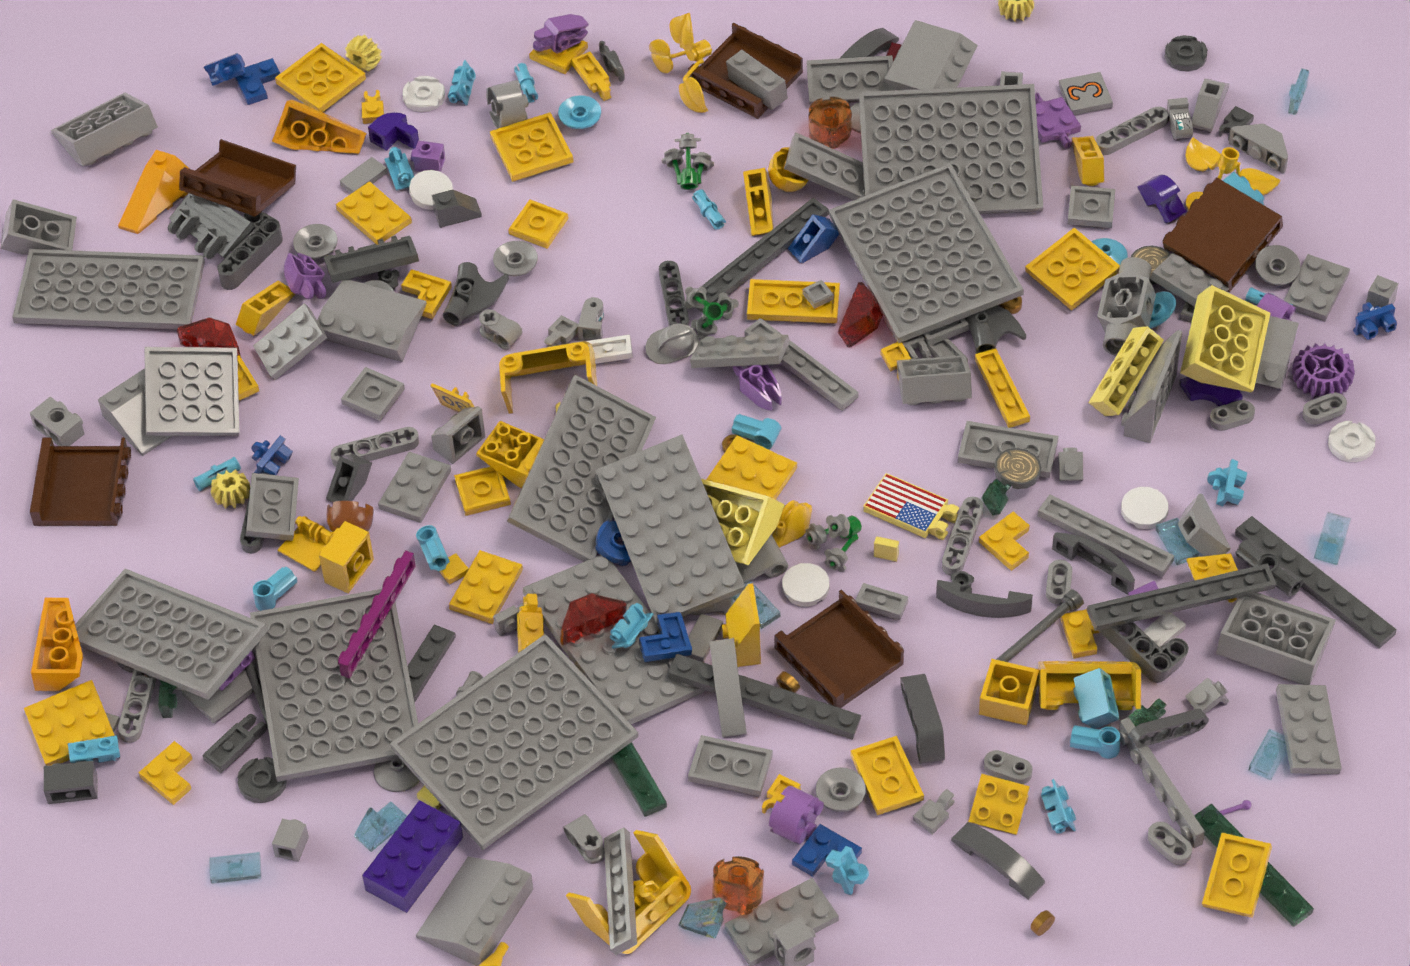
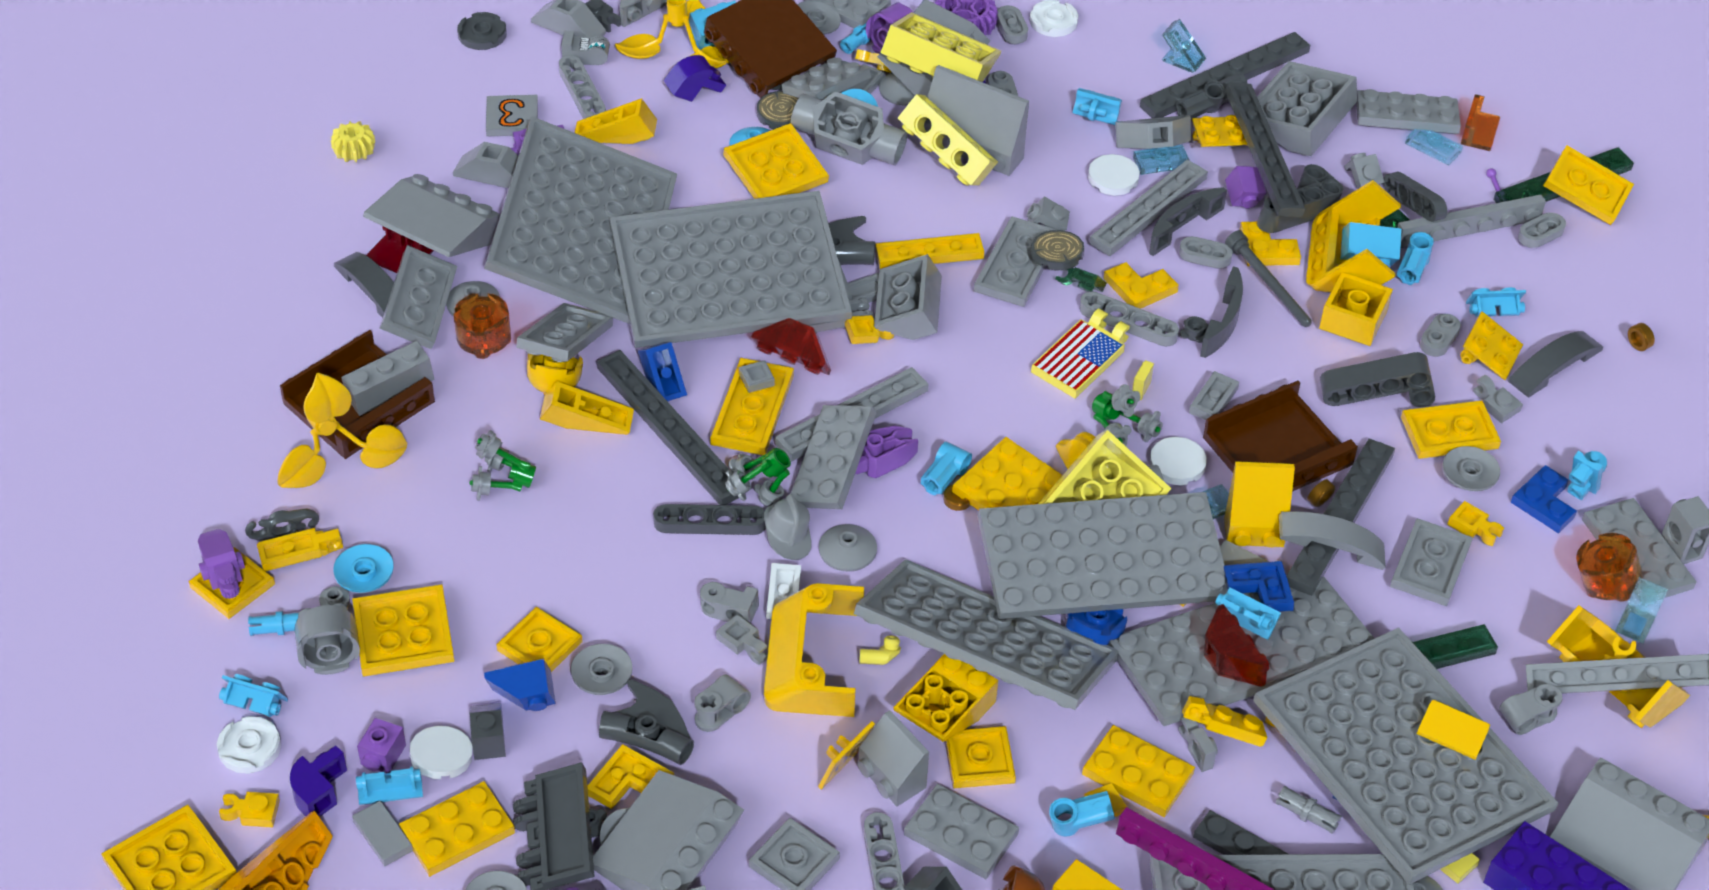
camera: 85 degrees left, 5 degrees down
(363, 53) = (152, 798): light yellow gear -> none
(490, 219) = (524, 684): none -> blue slope
(532, 766) = (1453, 729): none -> yellow slope
(551, 105) = (334, 595): none -> light grey plate
(668, 392) = (847, 547): none -> light grey dish
(708, 209) = (578, 463): medium azure pin -> none
(795, 815) = (1516, 504): medium lavender brick -> none
(1091, 206) = (686, 137): light grey plate -> none
(1309, 789) = (1480, 126): none -> clear orange panel

